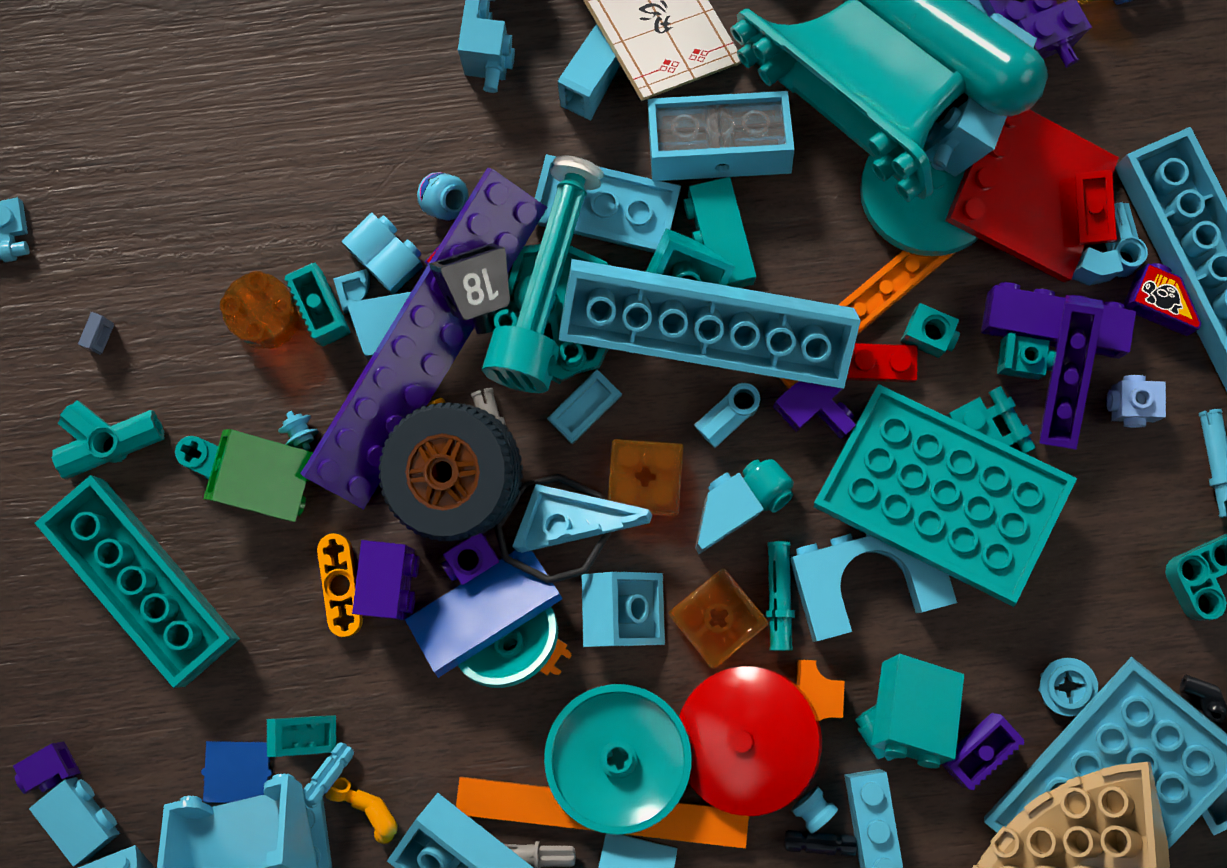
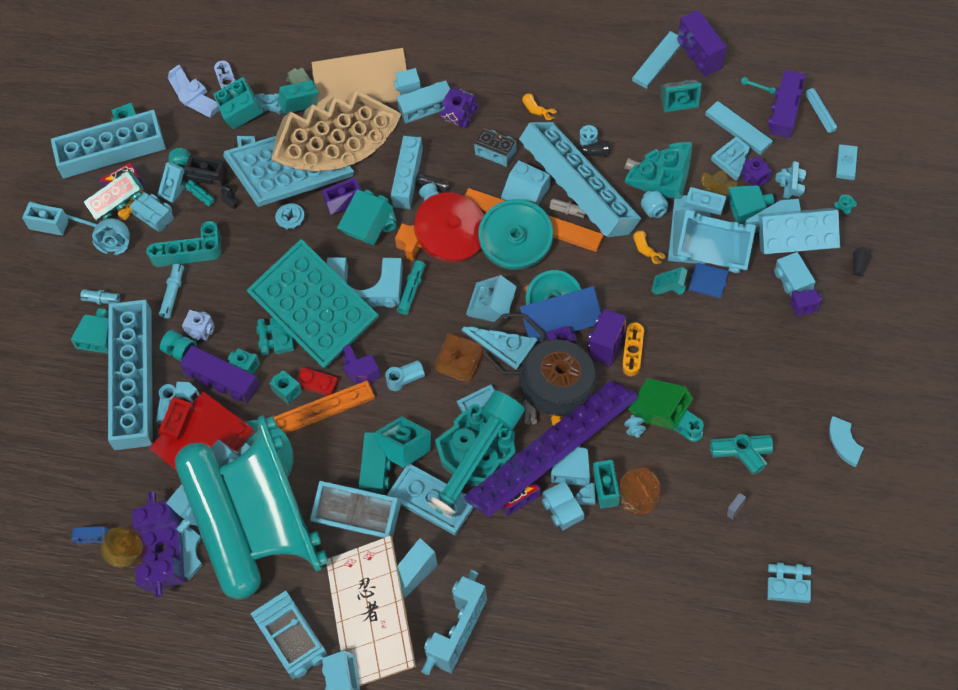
camera: 160 degrees left, 20 degrees down
(137, 581) = (738, 372): teal brick -> none
(327, 774) = (661, 263): medium azure axle -> none
(442, 195) = (519, 524): medium azure head -> none
(474, 284) = (514, 457): black torso -> none
(708, 324) = (400, 406): medium azure brick -> none
(720, 594) = (452, 275): clear orange brick -> none
(725, 510) = (425, 323): medium azure slope -> none
(769, 484) = (398, 336): teal head -> none
(1071, 371) = (225, 339): dark purple brick -> none
(1162, 299) = (162, 370): slope -> none
(1162, 352) = (175, 344): none -> teal wheel

